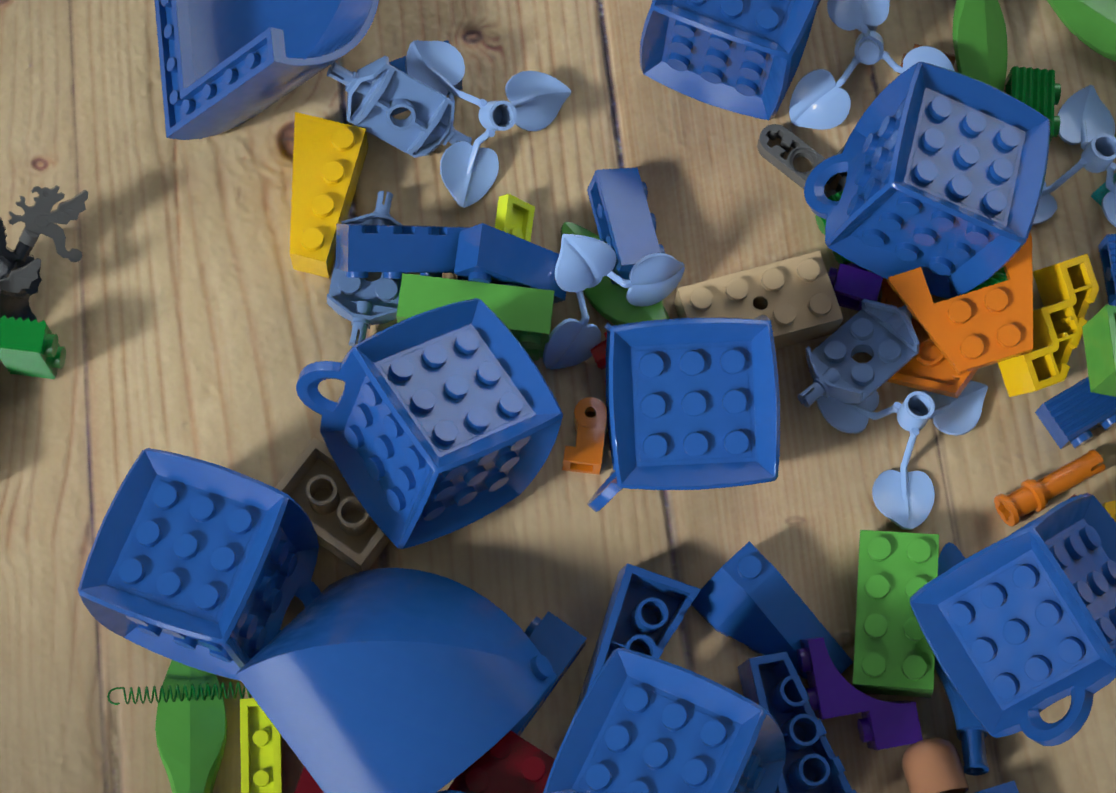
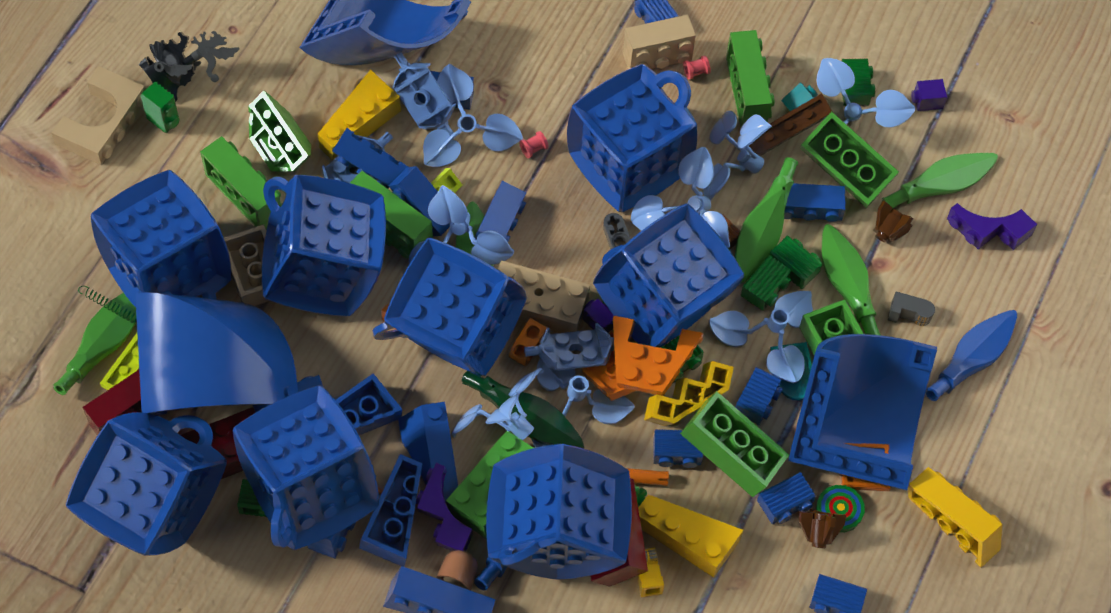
camera: 35 degrees right, 10 degrees down
(230, 289) = (277, 135): none -> bright green wedge
(230, 392) = (237, 180): none -> bright green brick
(590, 90) = (533, 144): none -> coral bush
(792, 380) = (529, 336): none -> orange leg
(866, 485) = (548, 422): none -> dark green animal
(872, 513) = (515, 422): none -> light blue plant
(1048, 50) = (803, 265): none -> green brick

